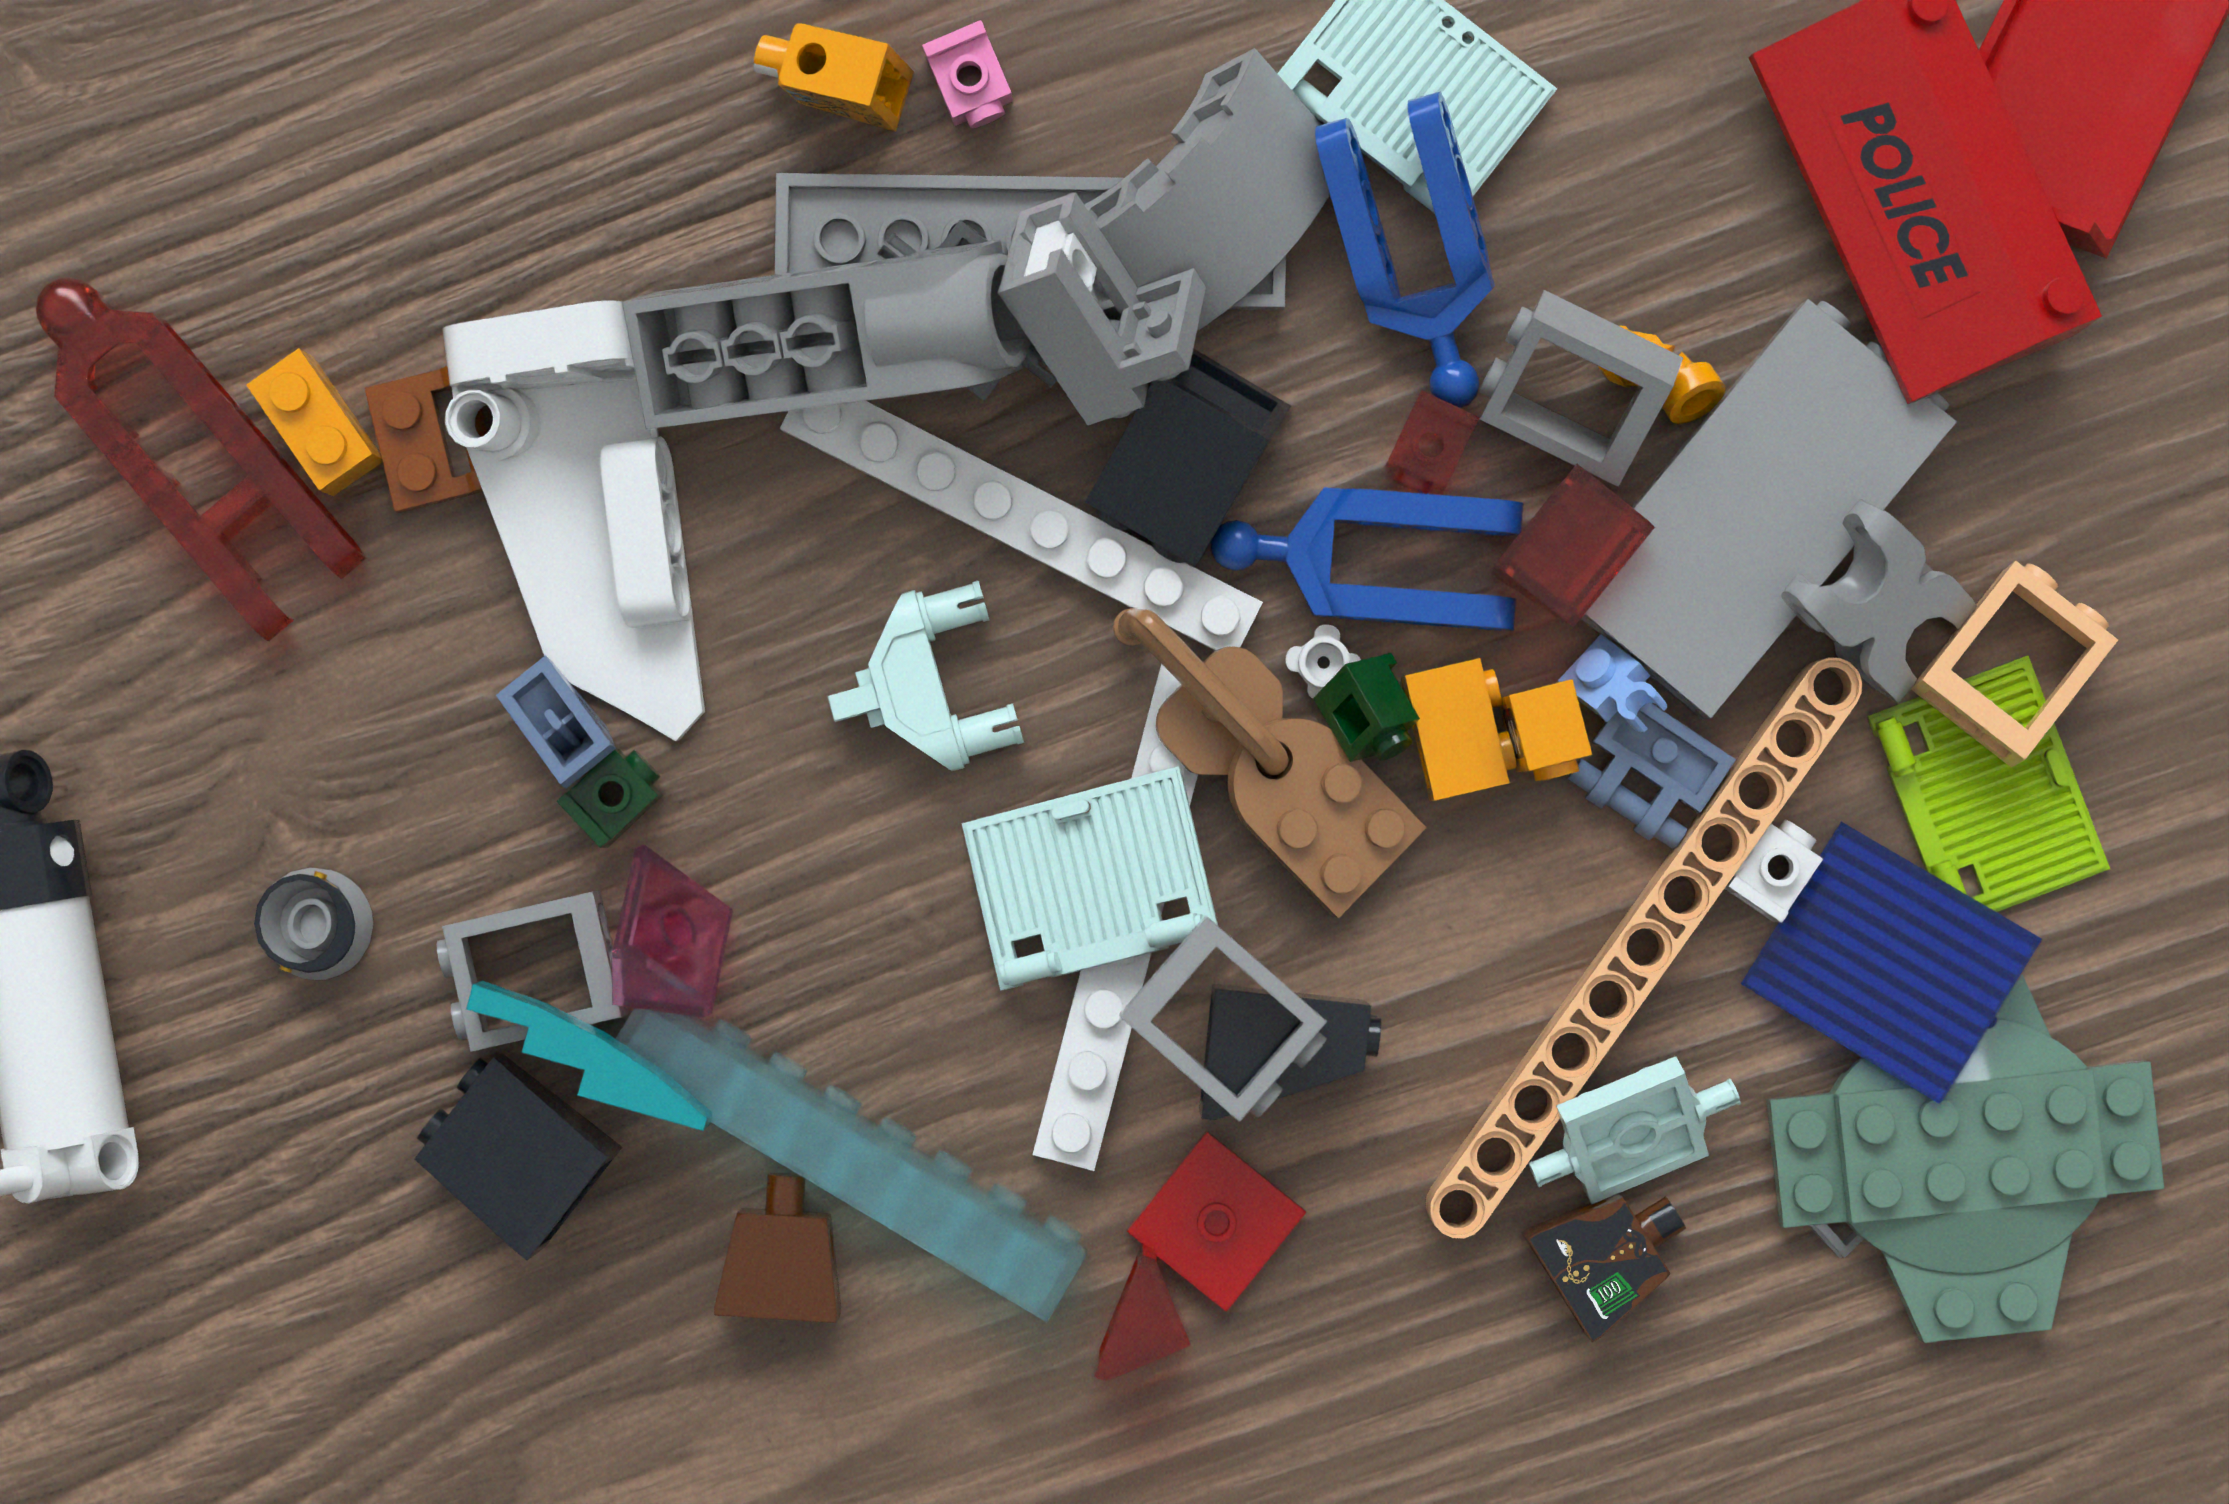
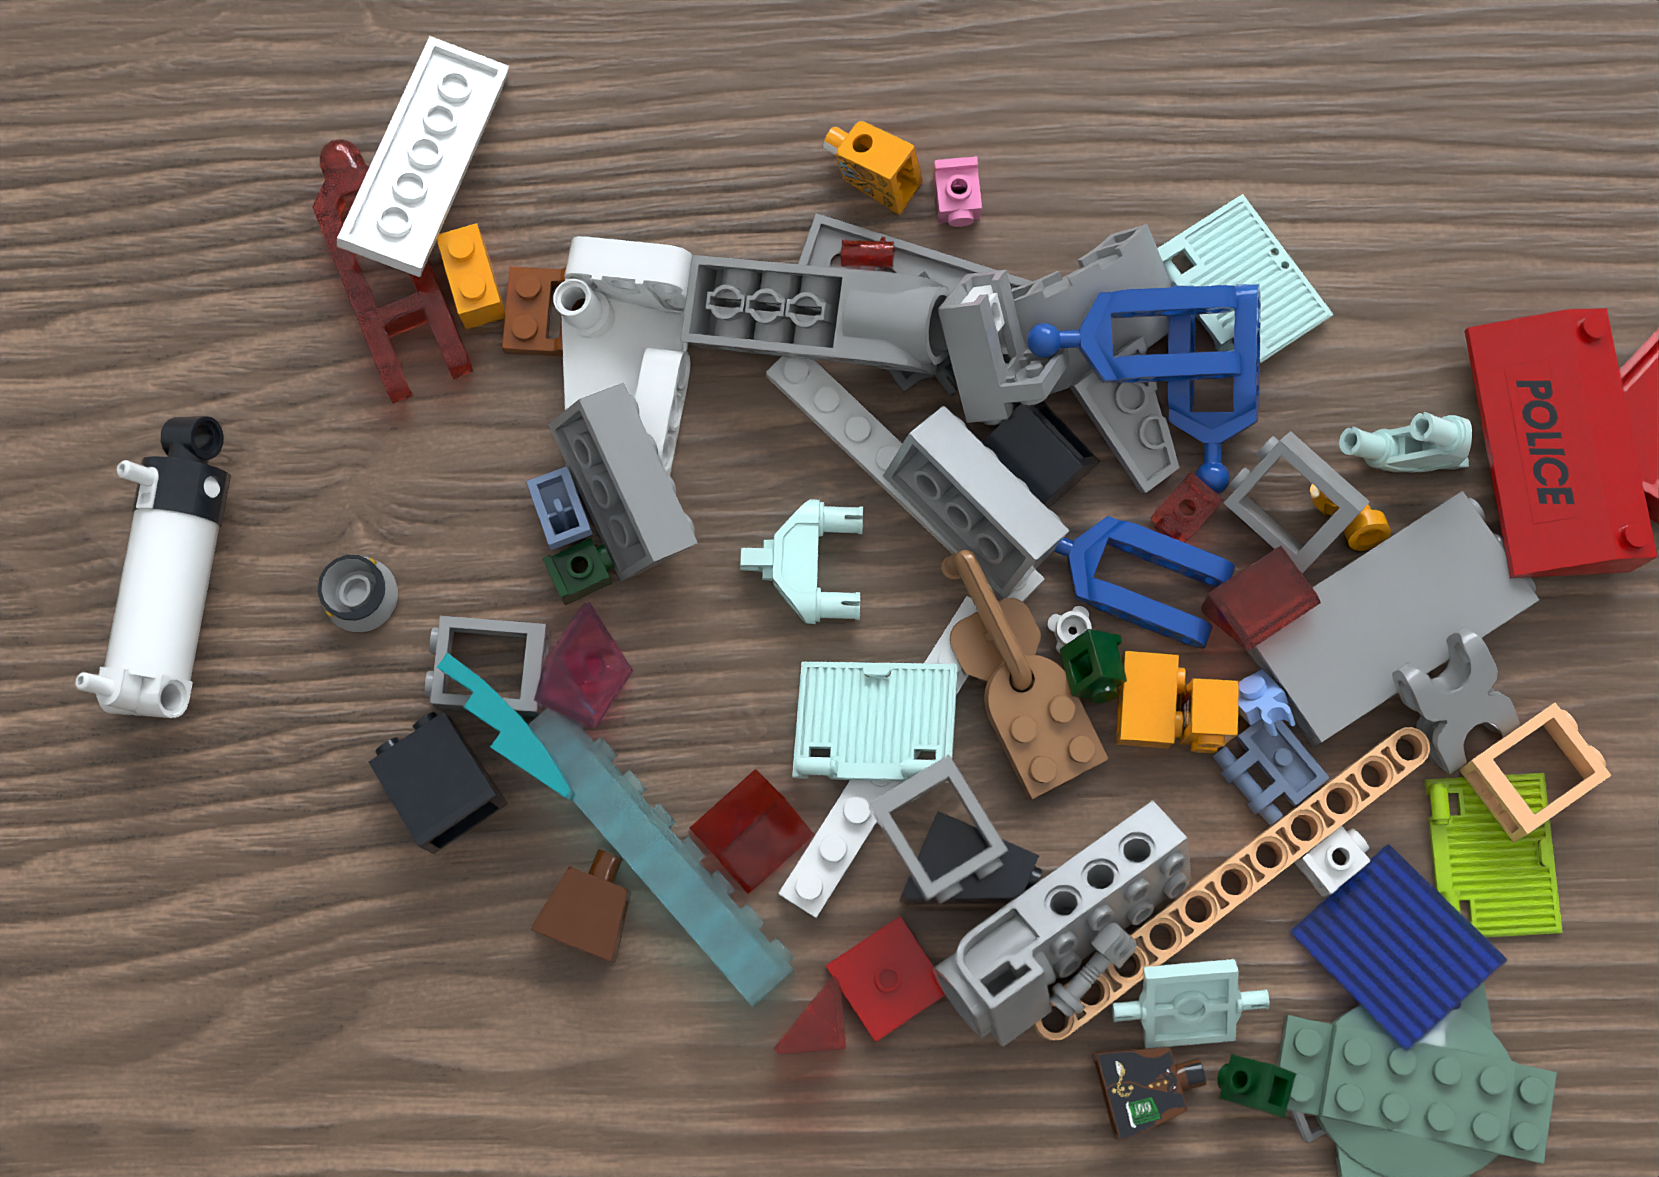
camera: 15 degrees right, 10 degrees down
(188, 271) = (423, 157): none -> white plate
(634, 658) = (622, 481): none -> light grey slope
(870, 214) = (868, 253): none -> clear red pin
(968, 1080) = (752, 831): none -> clear red slope
(1133, 533) = (974, 500): none -> light grey slope
(1230, 246) = (1096, 343): none -> blue piece
(1308, 332) = (1130, 422): none -> light grey wing
(1374, 1156) = (1045, 933): none -> light grey brick
(1505, 1094) = (1113, 947): none -> light grey hinge
(1717, 256) = (1421, 447): none -> light aqua connector
(1753, 1209) = (1256, 1085): none -> dark green brick

